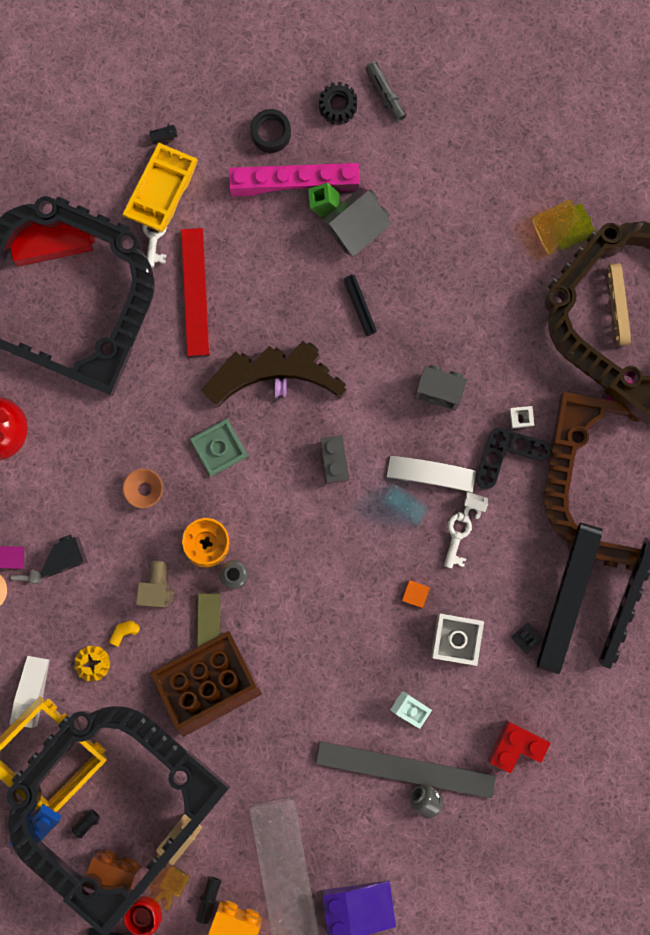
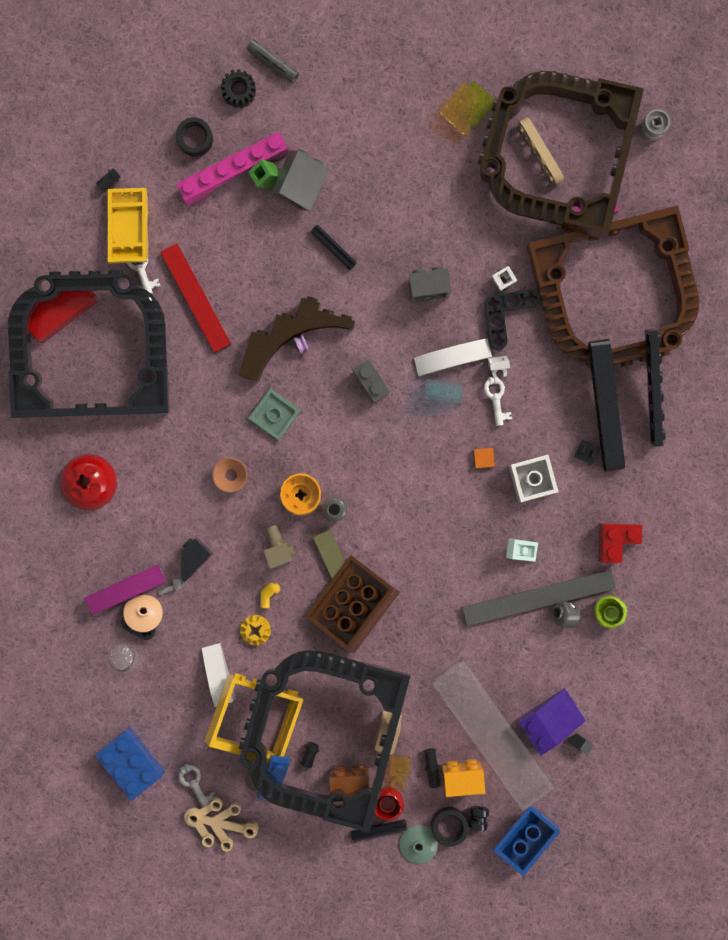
camera: 25 degrees left, 5 degrees up
(475, 820) = (610, 611): none -> lime hair

